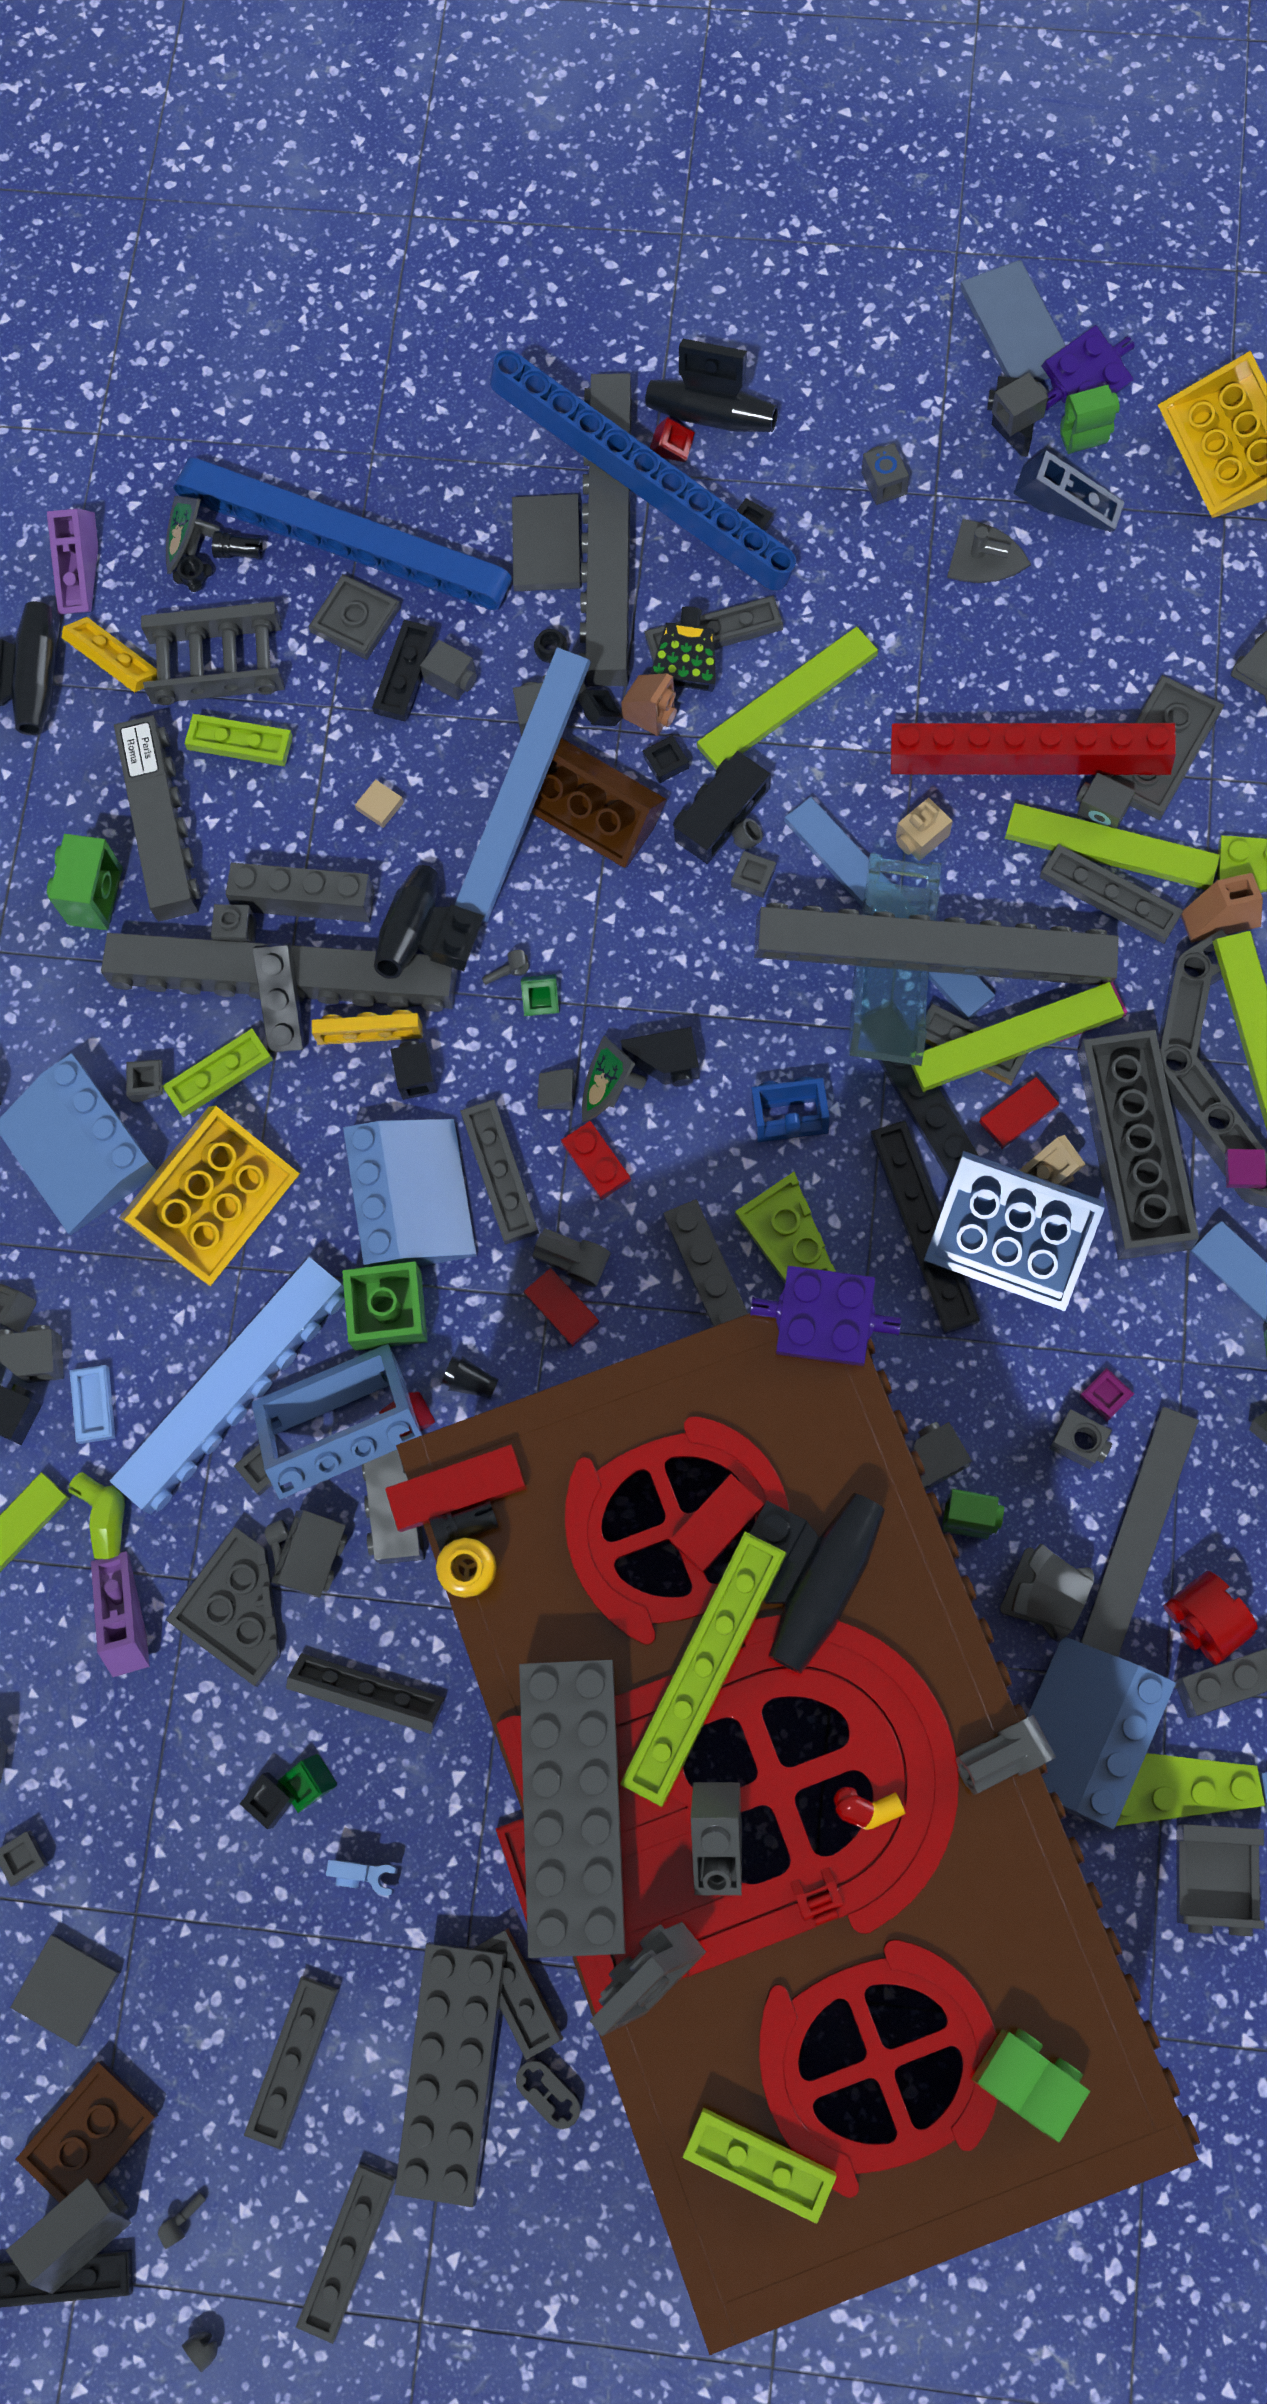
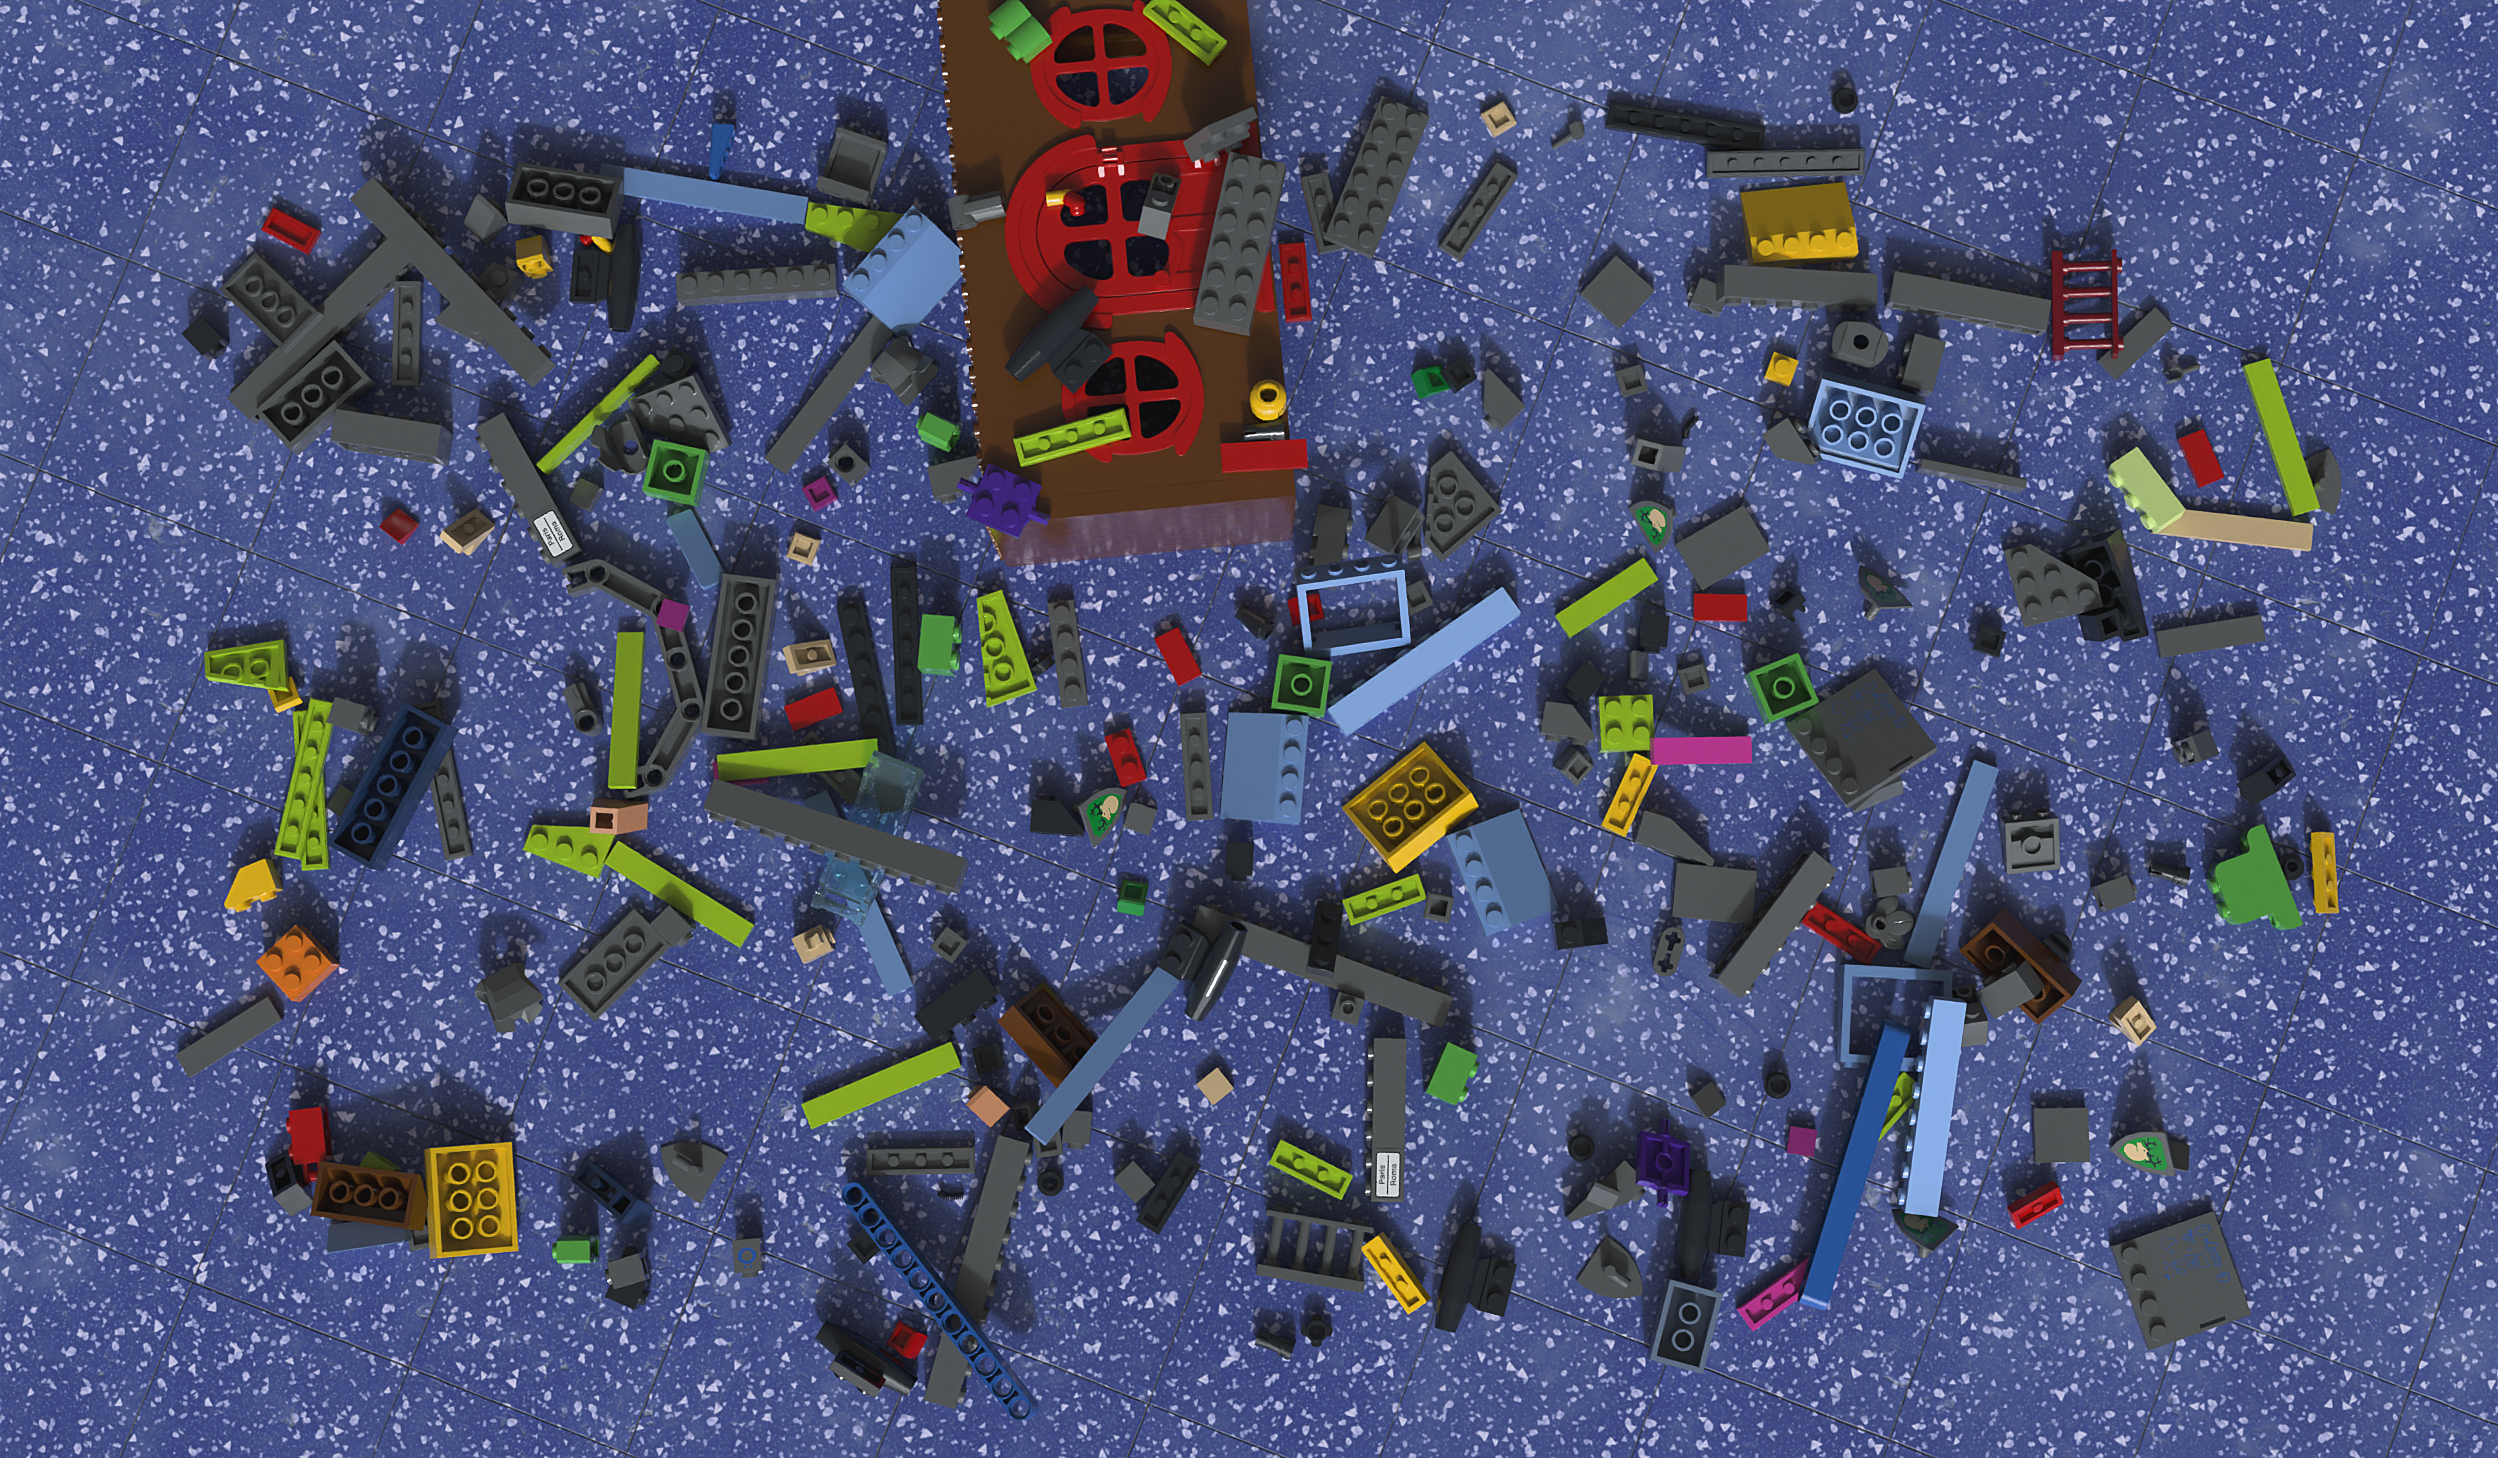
camera: 175 degrees left, 10 degrees up
(70, 2235) = (1635, 140): dark grey brick -> none
(73, 558) = (1407, 1367): medium lavender slope -> none
(87, 2133) = (1619, 199): reddish brown plate -> none
(92, 1404) = (1525, 678): light blue tile -> none
(105, 1516) = (1528, 595): lime arm -> none
(118, 1616) = (1534, 524): medium lavender slope -> none
(185, 530) = (1315, 1367): dark grey shield -> none
(198, 2350) = (1571, 55): dark grey hinge -> none
(201, 1774) = (1499, 403): none -> dark grey slope
(292, 2219) = (1498, 119): none -> tan tile
(301, 892) = (1291, 1024): dark grey brick -> none
(344, 534) = (1190, 1329): blue beam -> none
(346, 2252) = (1468, 92): dark grey tile -> none
(350, 1873) = (1411, 314): light blue plate -> none
(354, 616) = (1196, 1254): dark grey tile -> none
(365, 1693) = (1377, 426): dark grey plate -> none
(367, 1028) = (1265, 903): yellow plate -> none
(517, 966) = (1143, 924): dark grey hand -> none
(541, 2101) = (1323, 147): dark grey beam -> none
(546, 542) = (1030, 1276): dark grey tile -> none
(581, 1260) = (1155, 685): dark grey piece -> none
(673, 601) = (943, 1194): none -> black leg
(687, 652) = (949, 1137): torso -> none
(703, 1669) = (1139, 302): lime tile -> none
(717, 1523) = (1108, 389): red tile -> none
(738, 1248) = (1042, 663): none -> black plate
(747, 834) = (948, 975): dark grey hinge -> none
(750, 1437) = (1072, 437): none -> lime tile
(801, 1091) = (975, 743): blue window -> none
(880, 1227) = (939, 645): none -> bright green brick
(1013, 320) = (601, 1365): sand blue tile -> none
(1014, 1230) = (846, 617): medium blue slope -> none
(1033, 748) = (713, 981): red brick -> none
(1087, 365) = (561, 1300): dark purple plate -> none
(1103, 1315) = (803, 548): none -> tan tile
(1111, 894) = (693, 855): dark grey plate -> none
(1211, 1617) = (803, 323): red brick -> none

